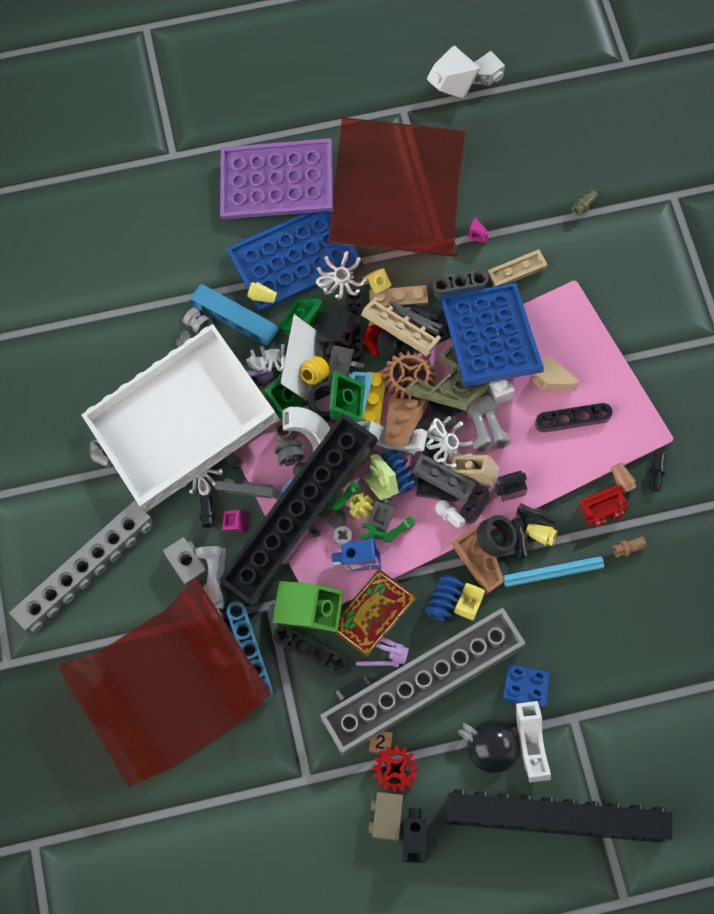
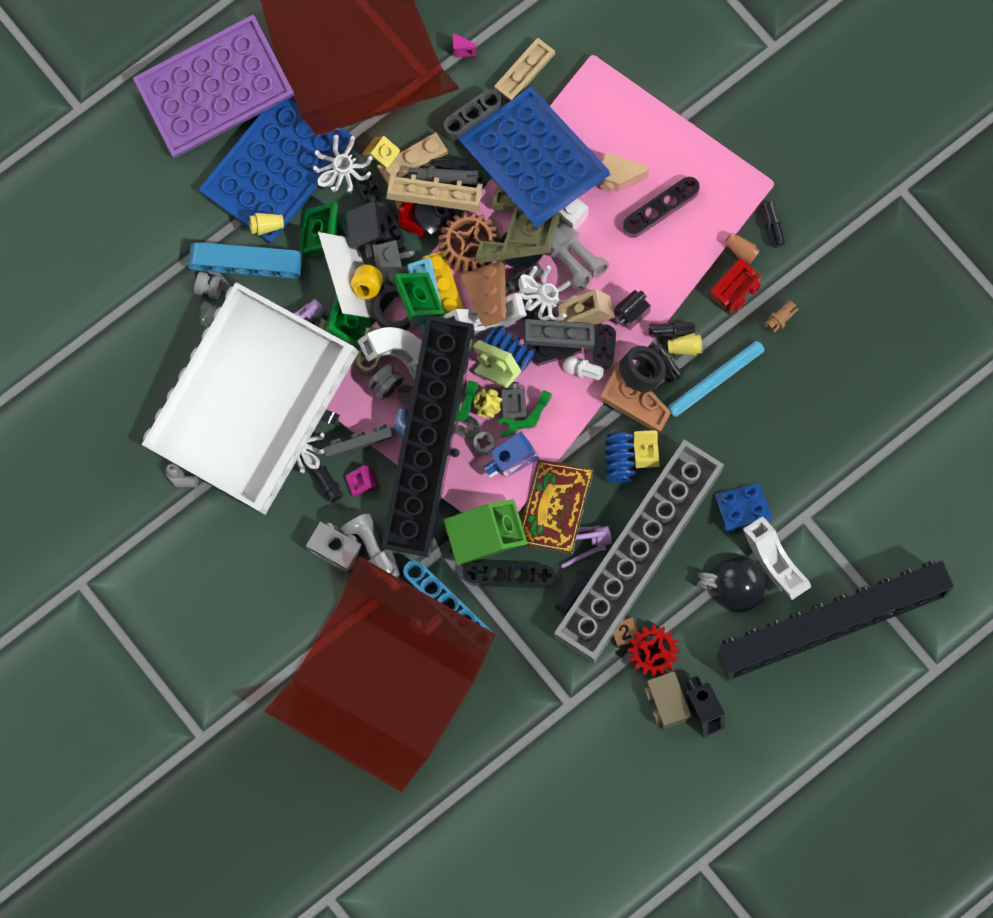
camera: 25 degrees left, 5 degrees up
(70, 569) = (253, 523): light grey brick -> none
(272, 357) = (314, 289): white animal -> none

